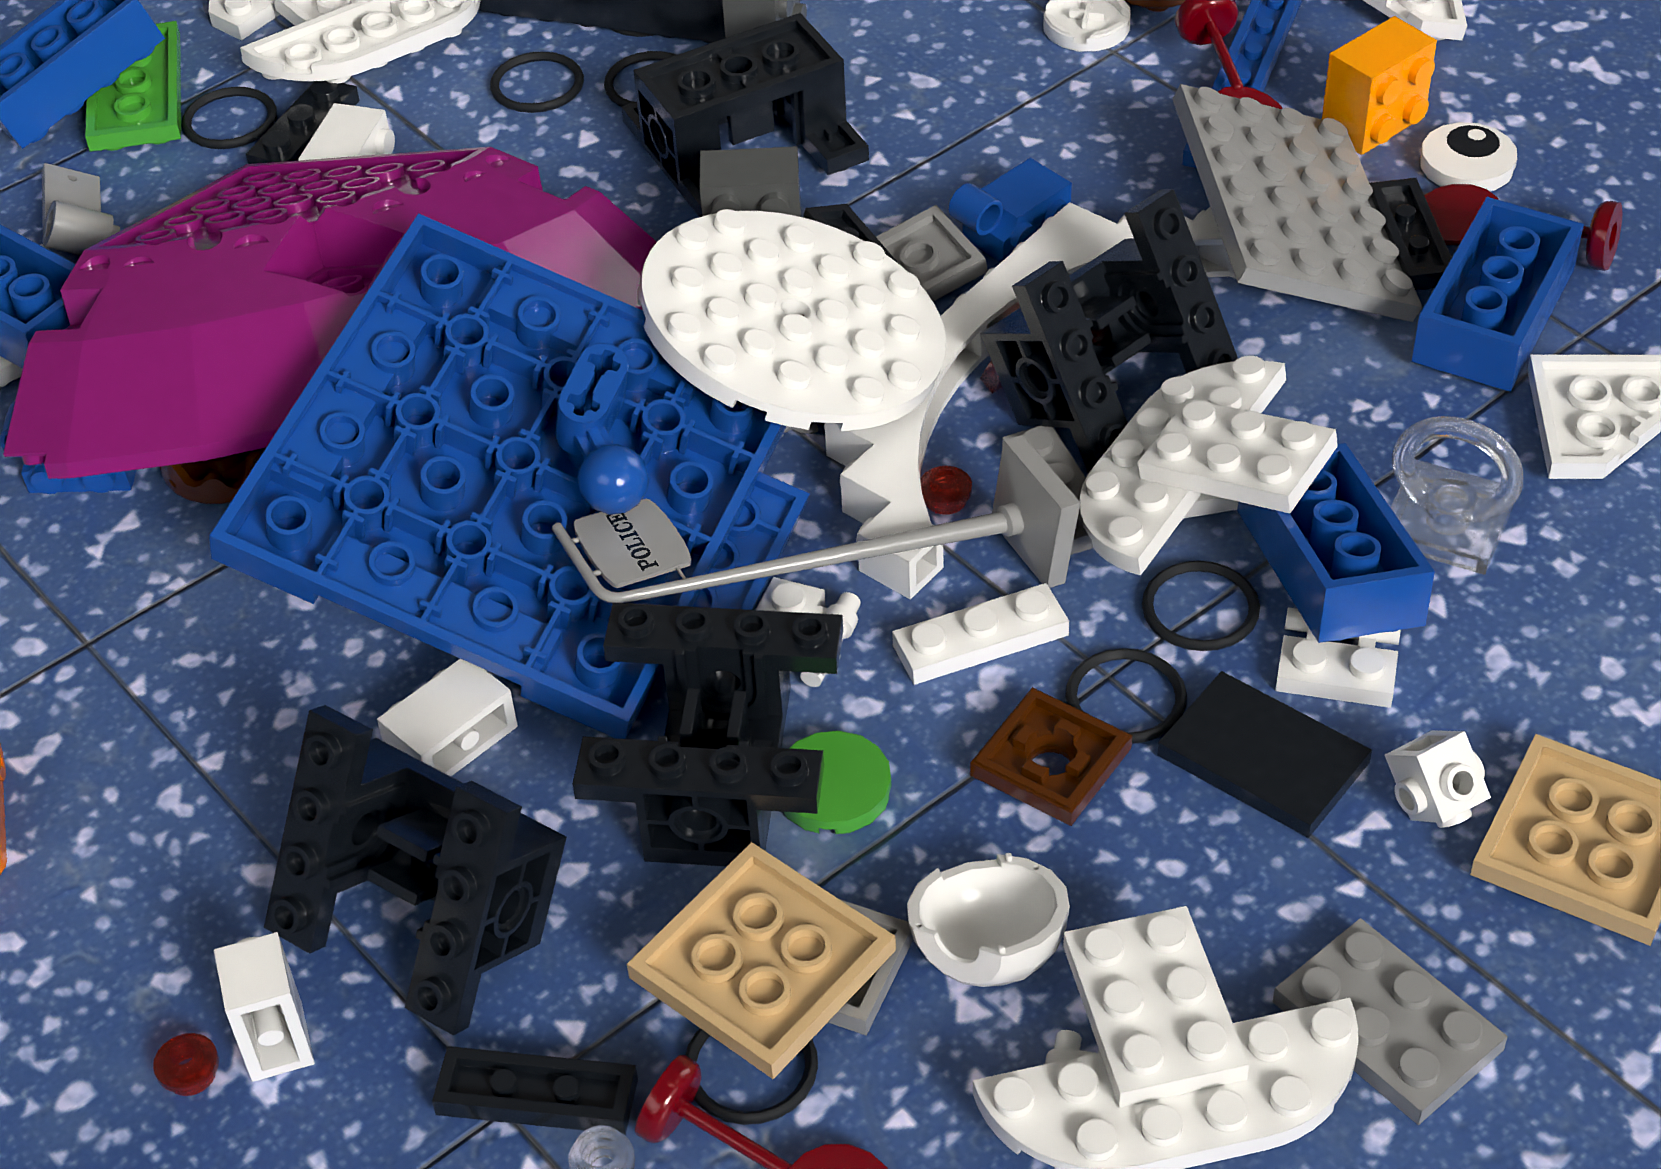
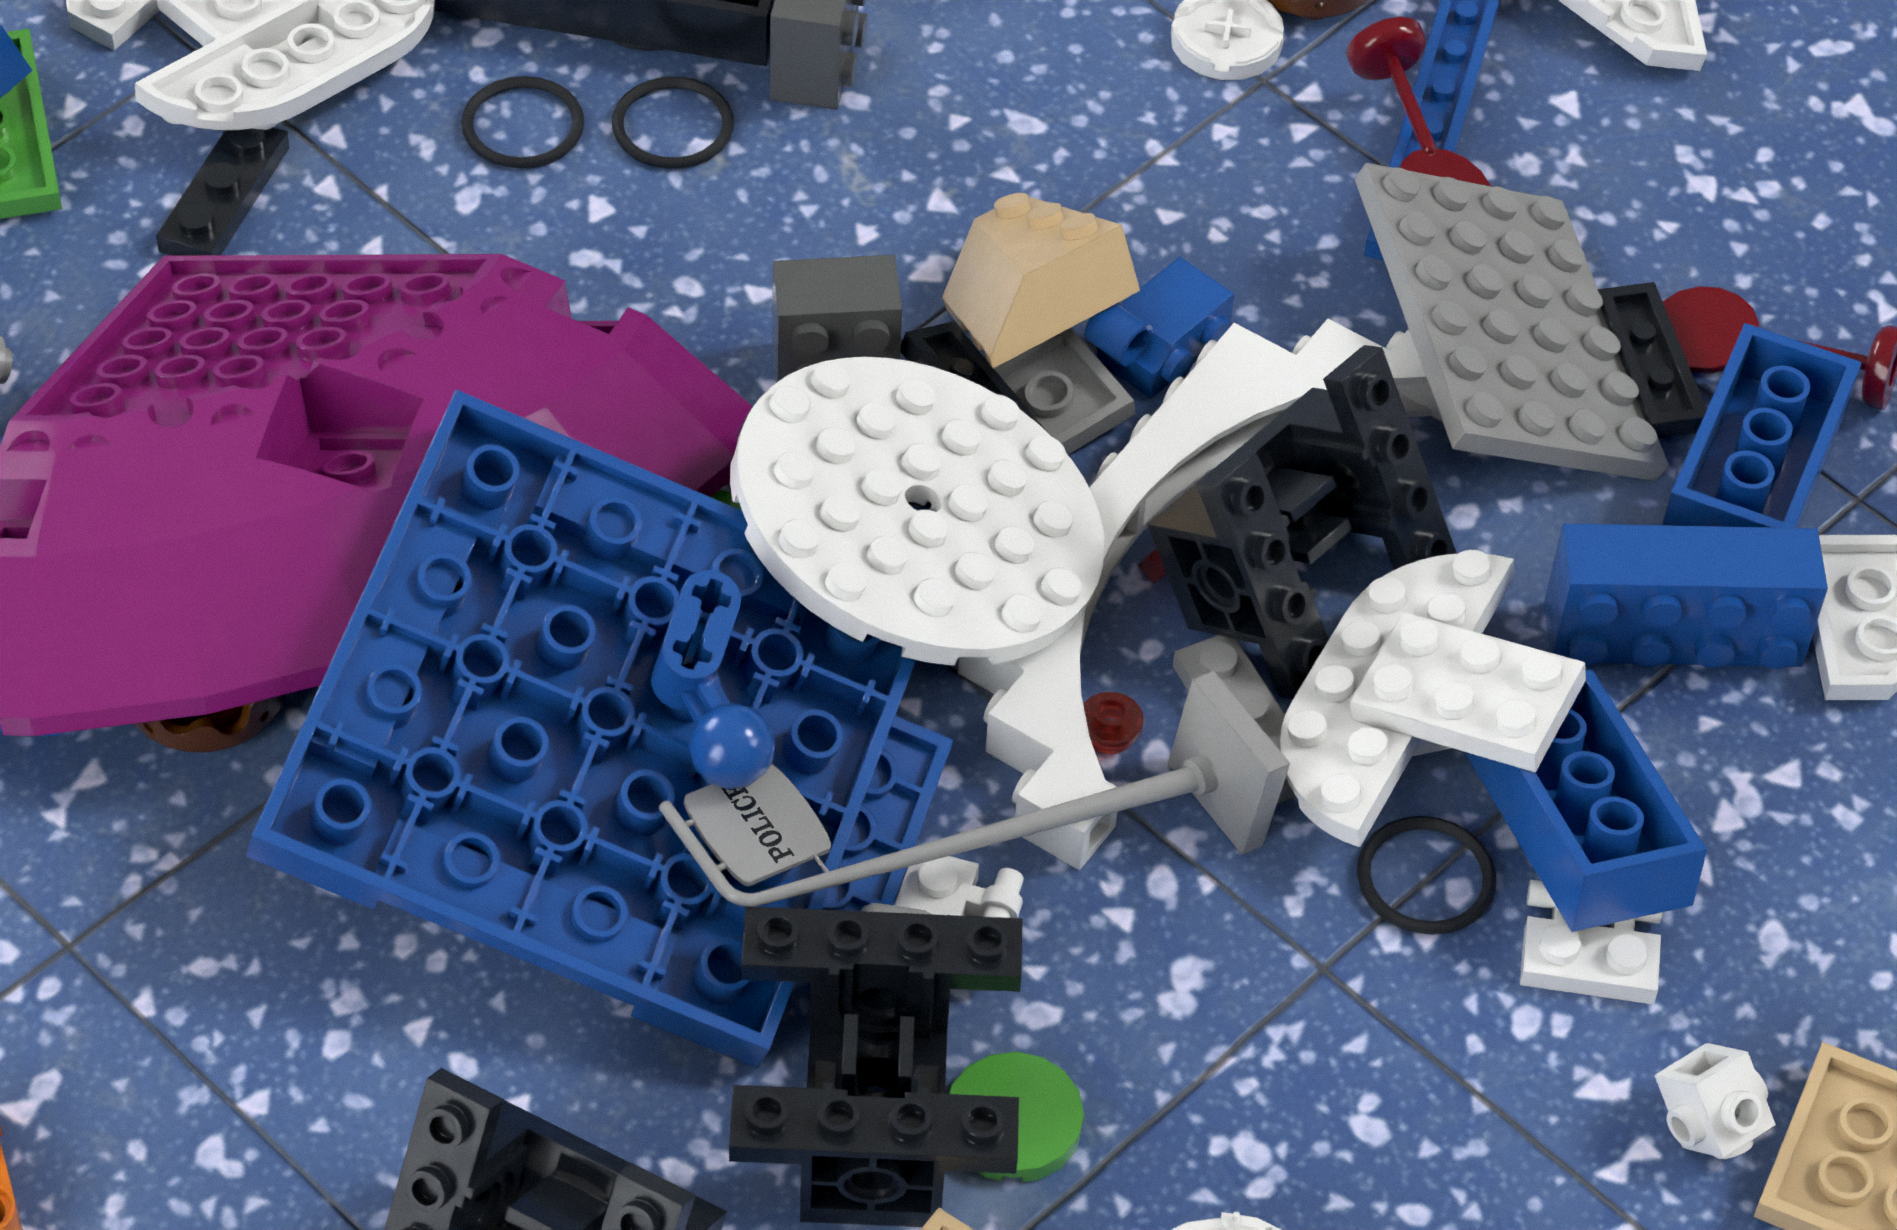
camera: 10 degrees left, 5 degrees up
(234, 142) = (129, 214): black tyre -> none
(350, 133) = (297, 216): white brick -> none
(451, 717) = (547, 1046): white brick -> none
(742, 82) = (799, 153): black piece -> none
(915, 164) = (1034, 274): none -> tan wedge
(980, 633) = (1169, 917): white plate -> none
(1048, 726) = (1265, 1039): reddish brown piece -> none
(1142, 656) = (1340, 1049): black tyre -> none
(1264, 753) = (1513, 1068): black tile -> none
(1380, 82) = (1606, 149): light orange brick -> none
(1387, 381) = (1685, 595): none -> blue brick
(1450, 512) = (1715, 747): clear tile -> none
(1468, 156) = (1714, 245): white tile -> none

